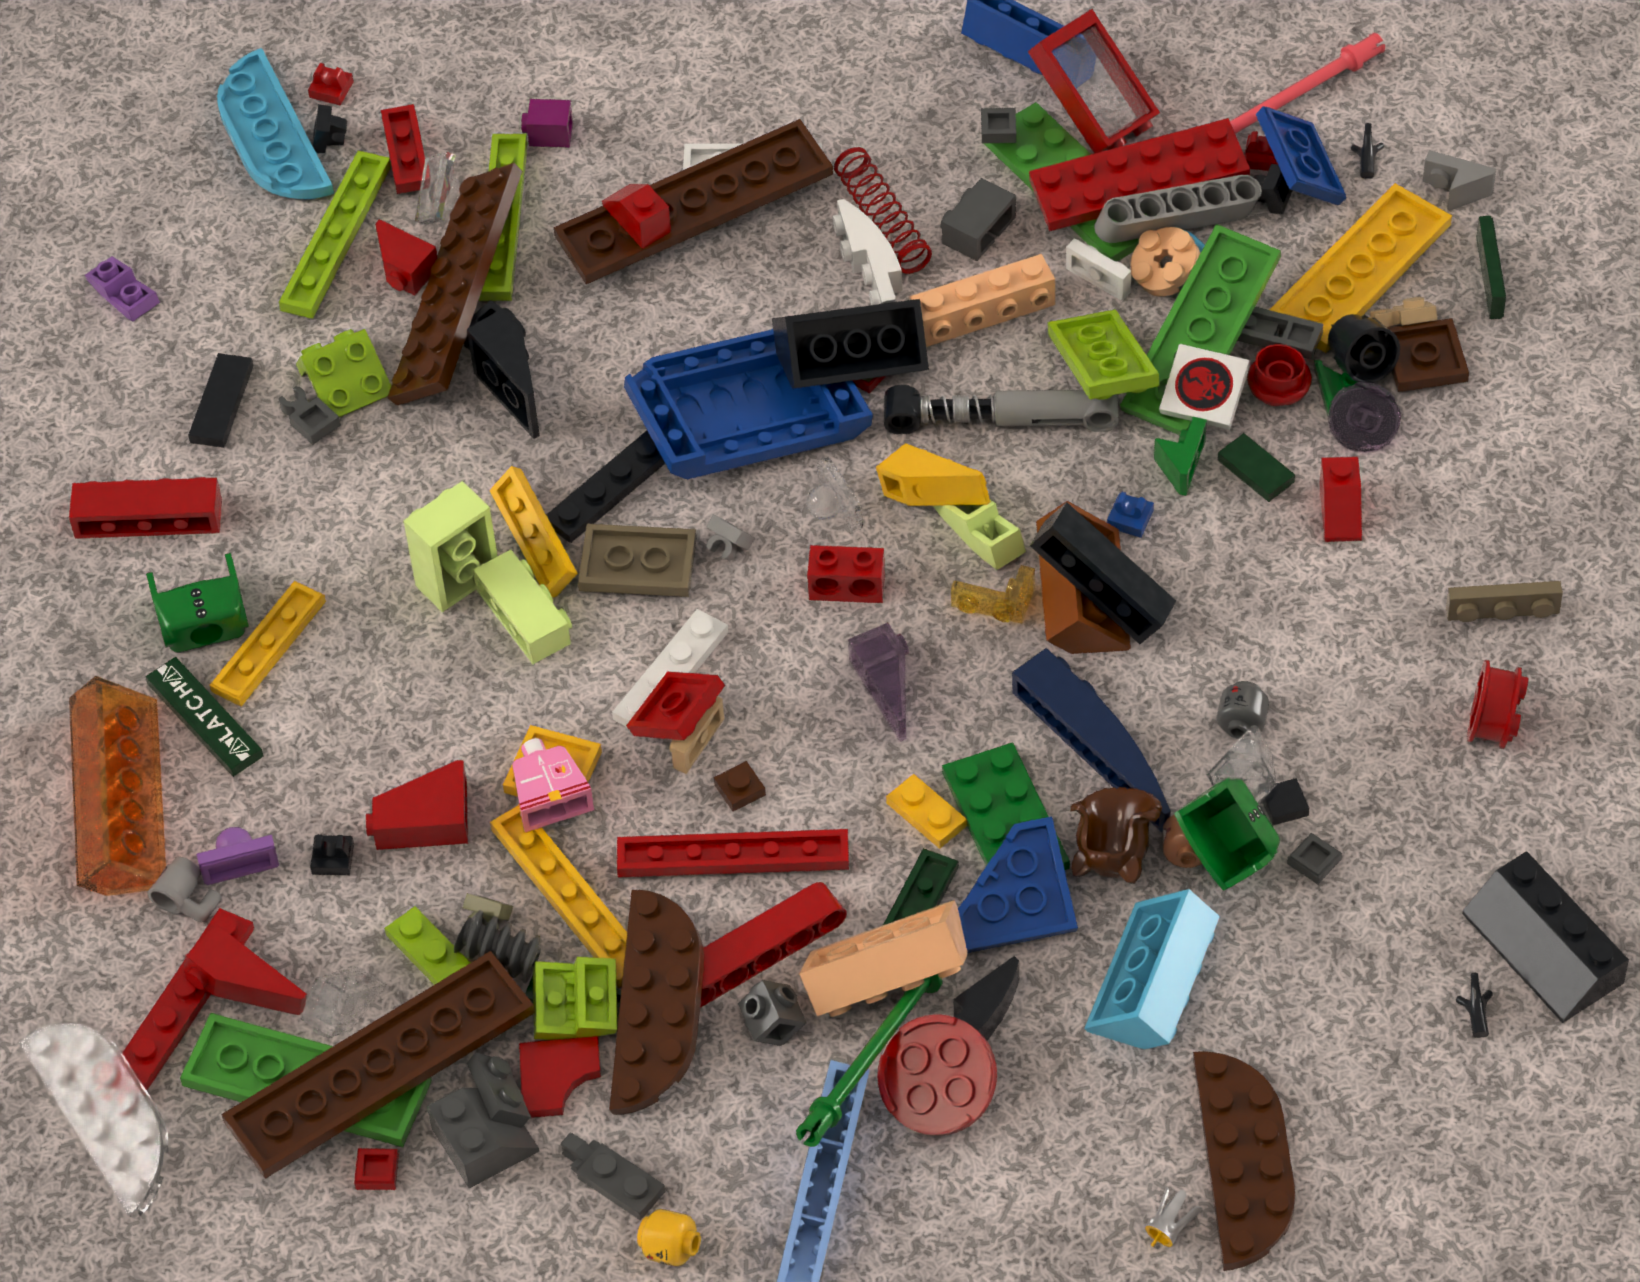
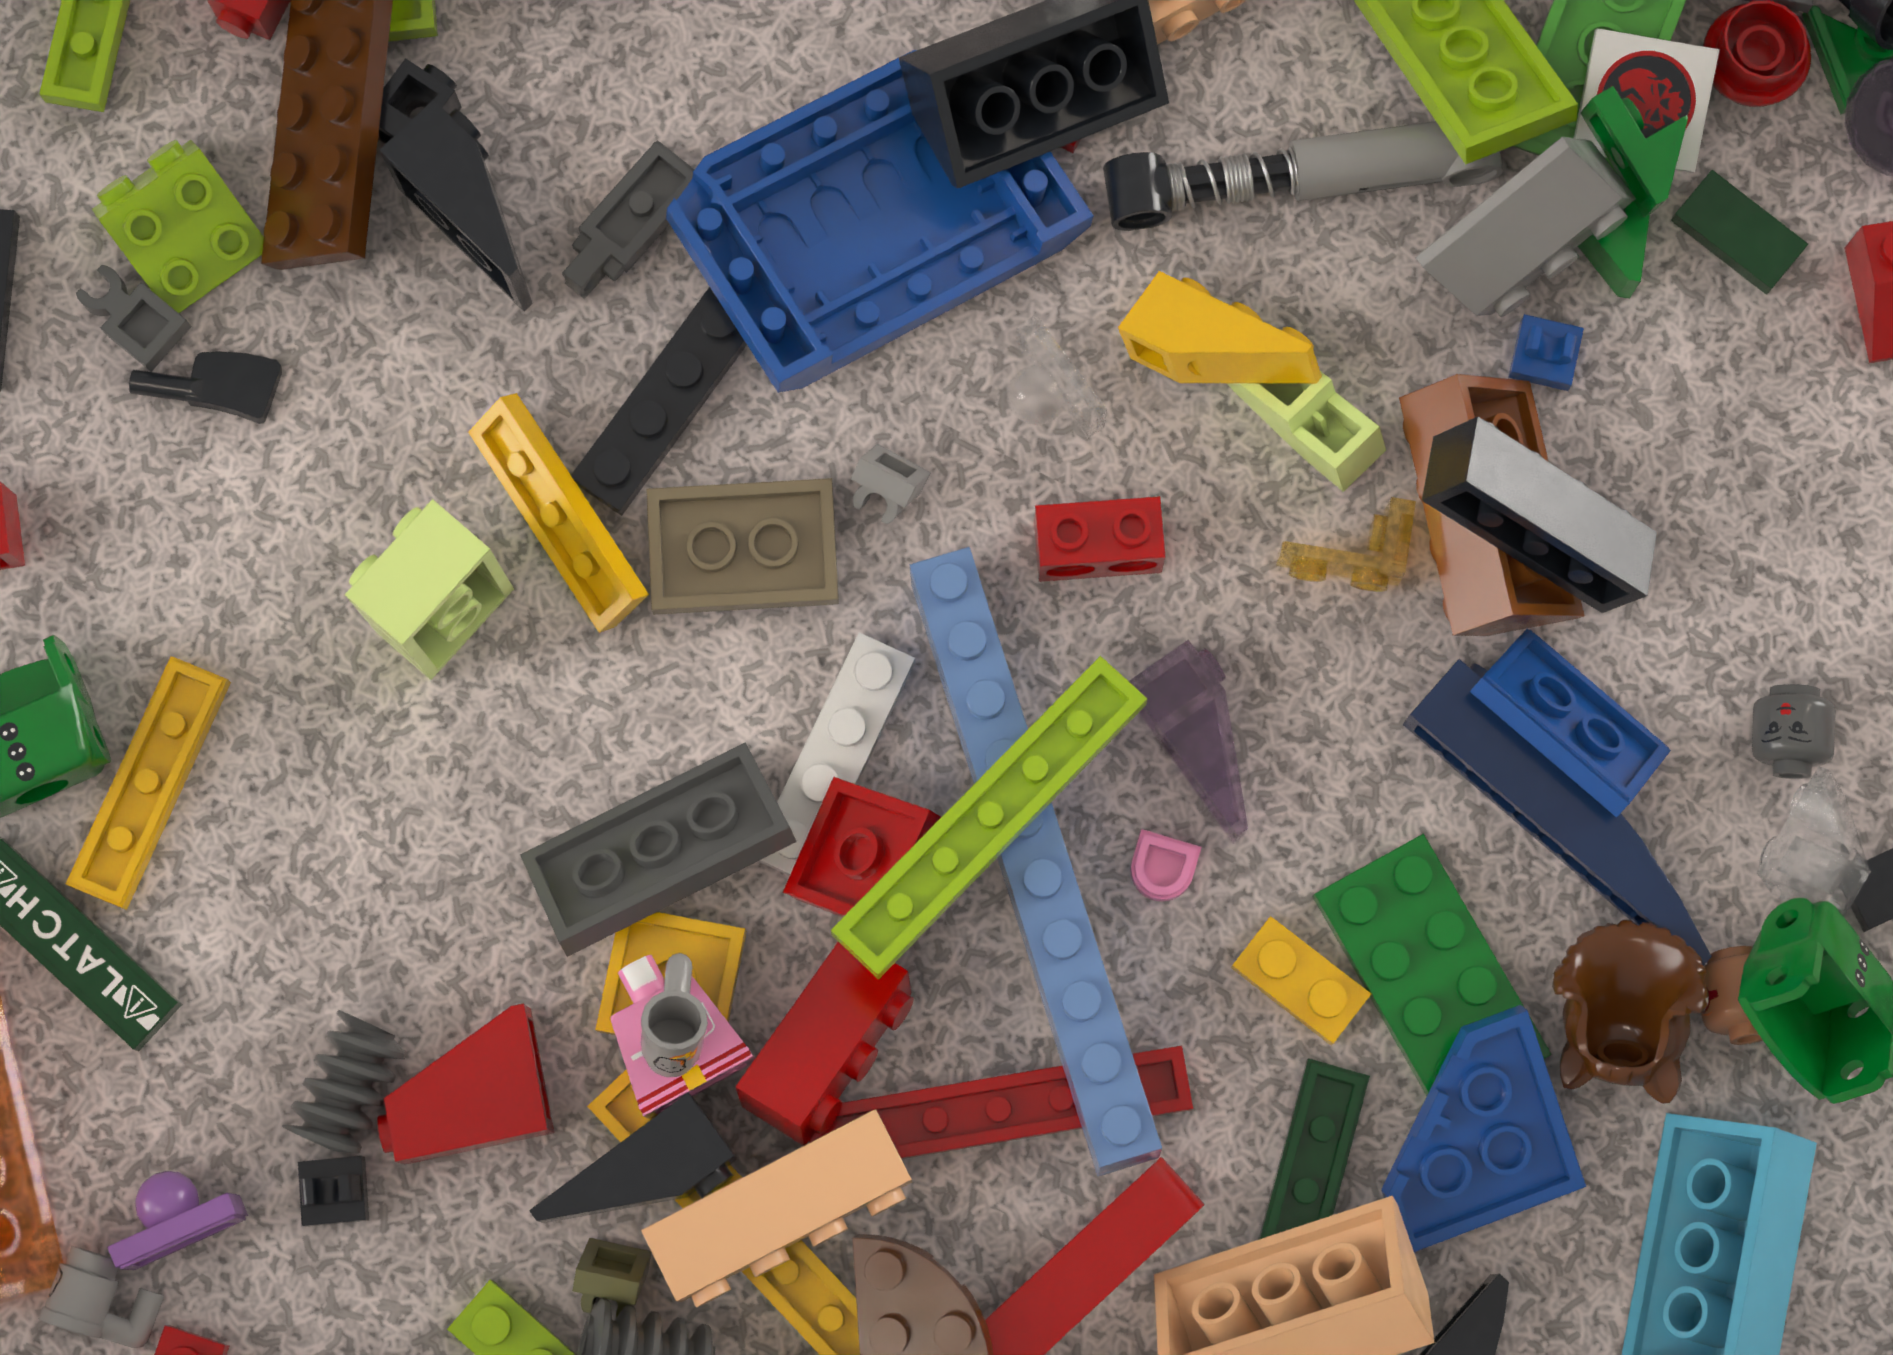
camera: 10 degrees left, 25 degrees up
(350, 454) = (218, 381): none -> black piece
(350, 794) = (346, 1085): none -> dark grey piece
(516, 847) = (655, 1164): none -> black slope
(523, 606) = (567, 664): yellowish green brick -> none
(547, 756) = (673, 1022): none -> light grey piece
(557, 696) = (657, 849): none -> dark grey plate
(591, 870) = (778, 1207): none -> light nougat brick
(598, 398) = (627, 219): none -> dark grey hinge
(635, 798) = (824, 1045): none -> red brick
(739, 786) = (985, 970): reddish brown plate -> none
(750, 677) = (988, 817): none -> lime plate
(776, 725) = (1038, 873): none -> medium blue brick
(855, 745) = (1163, 866): none -> bright pink tile
(1109, 688) = (1571, 721): none -> blue tile
(1120, 434) = (1529, 228): none -> light grey slope
(1192, 405) = (1640, 162): none -> green slope

